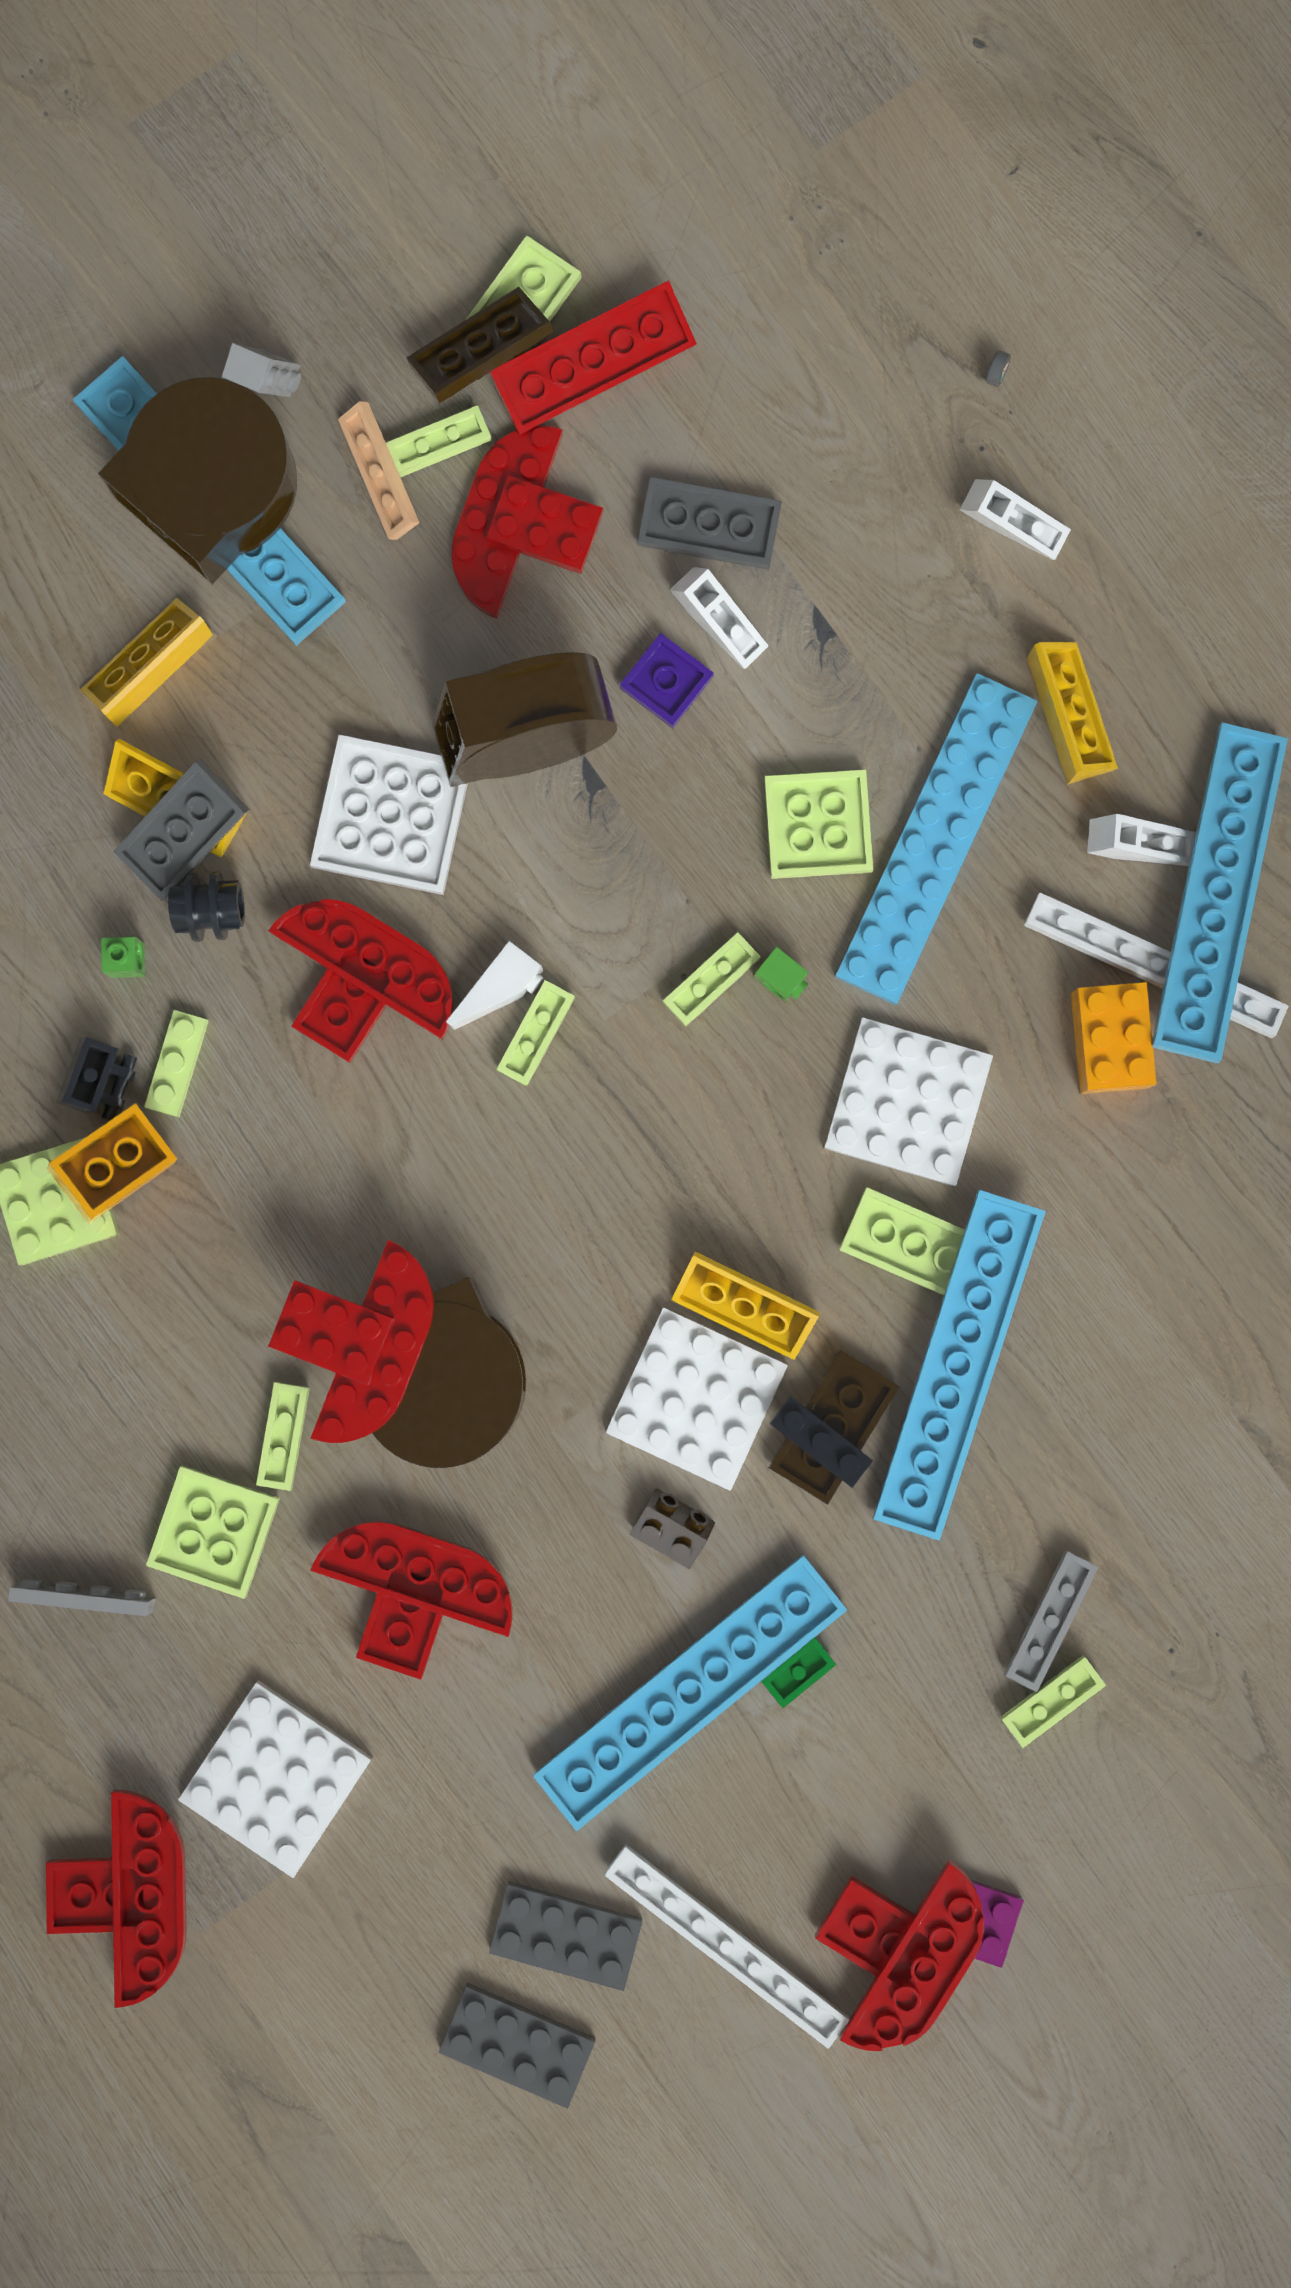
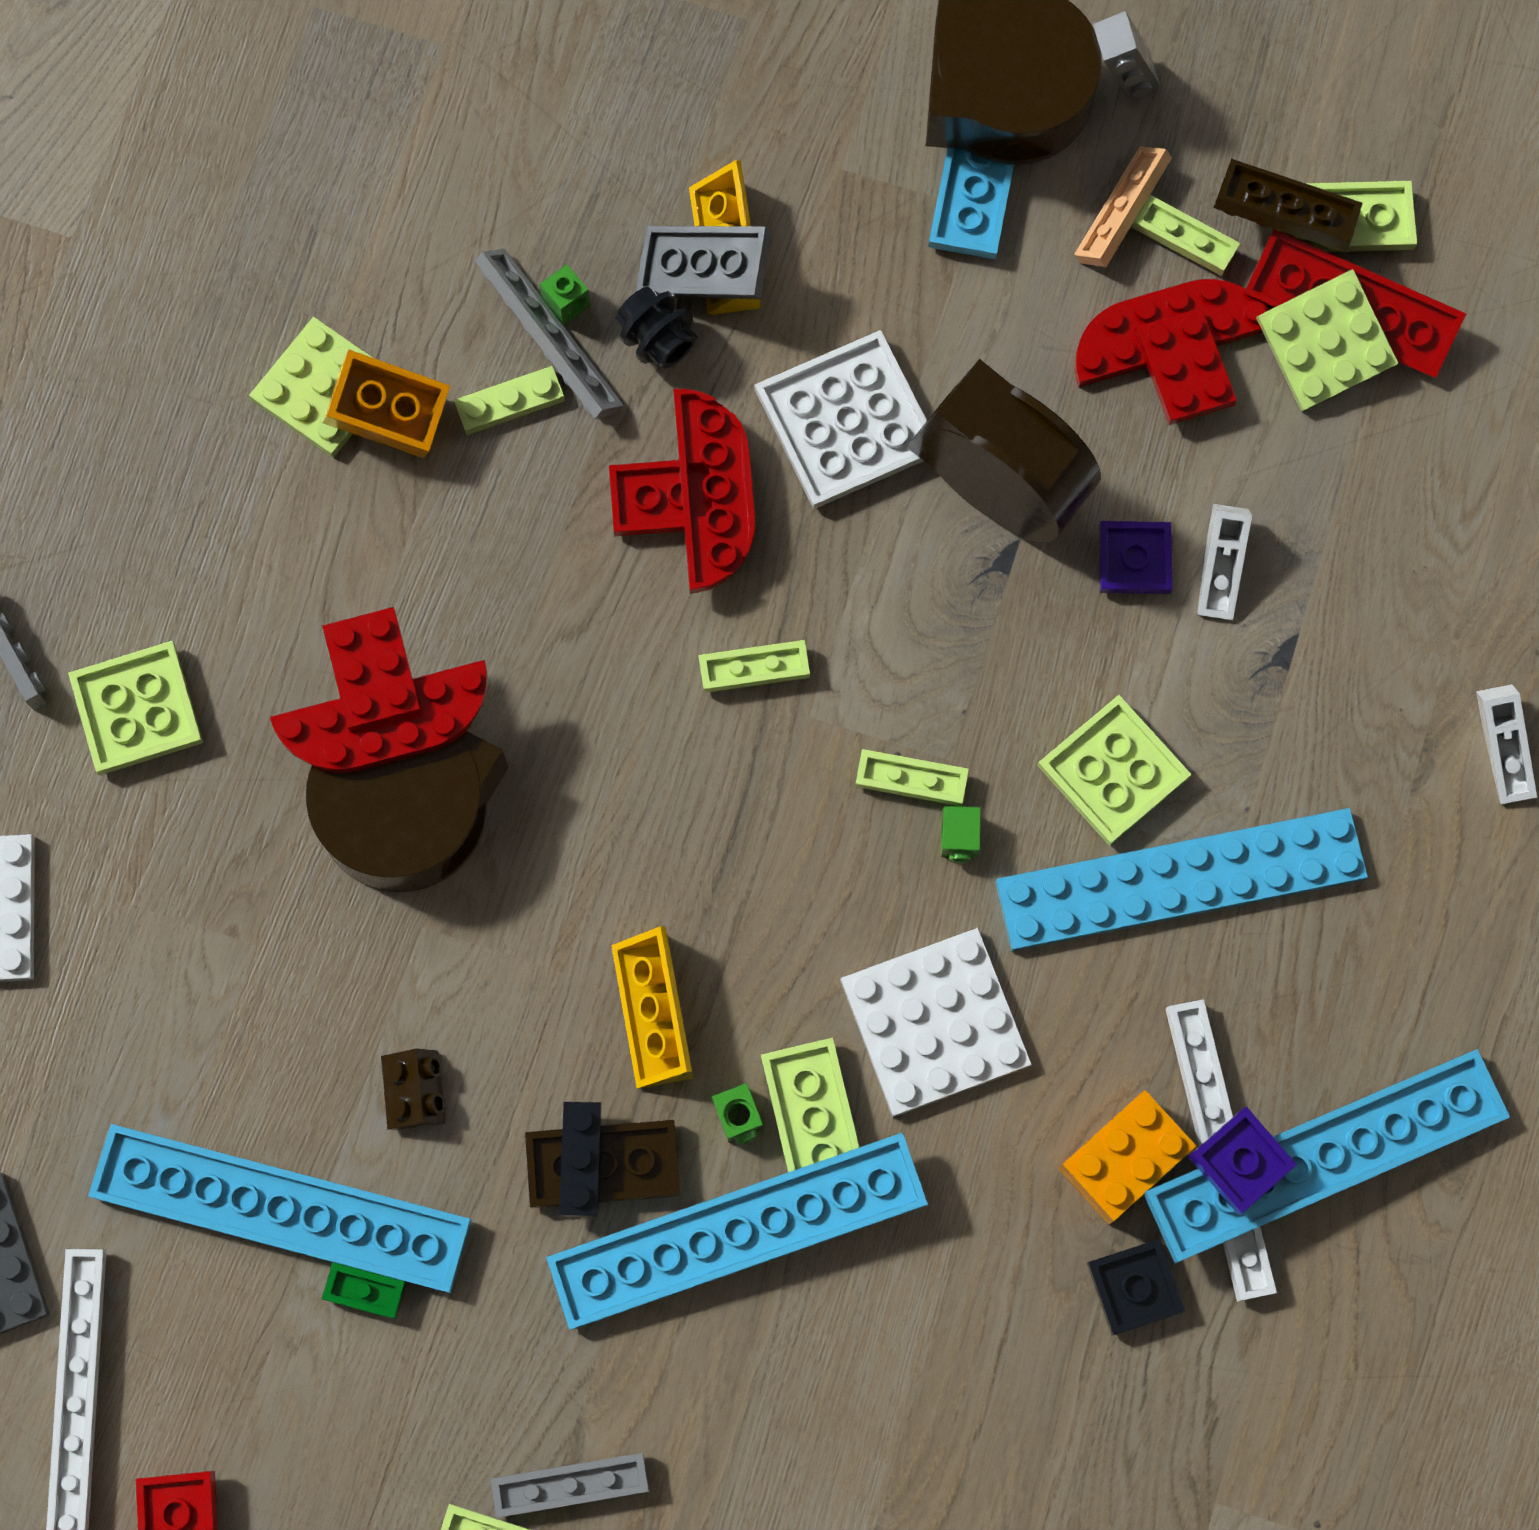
camera: 50 degrees right, 10 degrees down
(88, 1077) = (445, 336): black brick -> none
(144, 993) = (549, 333): none -> light grey plate
(147, 661) = (822, 144): yellow slope -> none
(283, 1436) = (256, 706): yellowish green plate -> none
(415, 1585) = (207, 908): red plate -> none
(501, 984) = (774, 607): white slope -> none
(607, 401) = (1327, 340): none -> yellowish green plate
(696, 1399) = (541, 1029): white plate -> none
(709, 523) = (1295, 496): dark grey plate -> none
(857, 1292) = (738, 1097): none -> bright green brick
(1071, 710) = (1384, 913): yellow slope -> none
(1139, 840) = (1317, 1053): white slope -> none
(1184, 957) = (1242, 1160): none -> dark purple plate
(1209, 1103) = (1135, 1287): none -> black plate

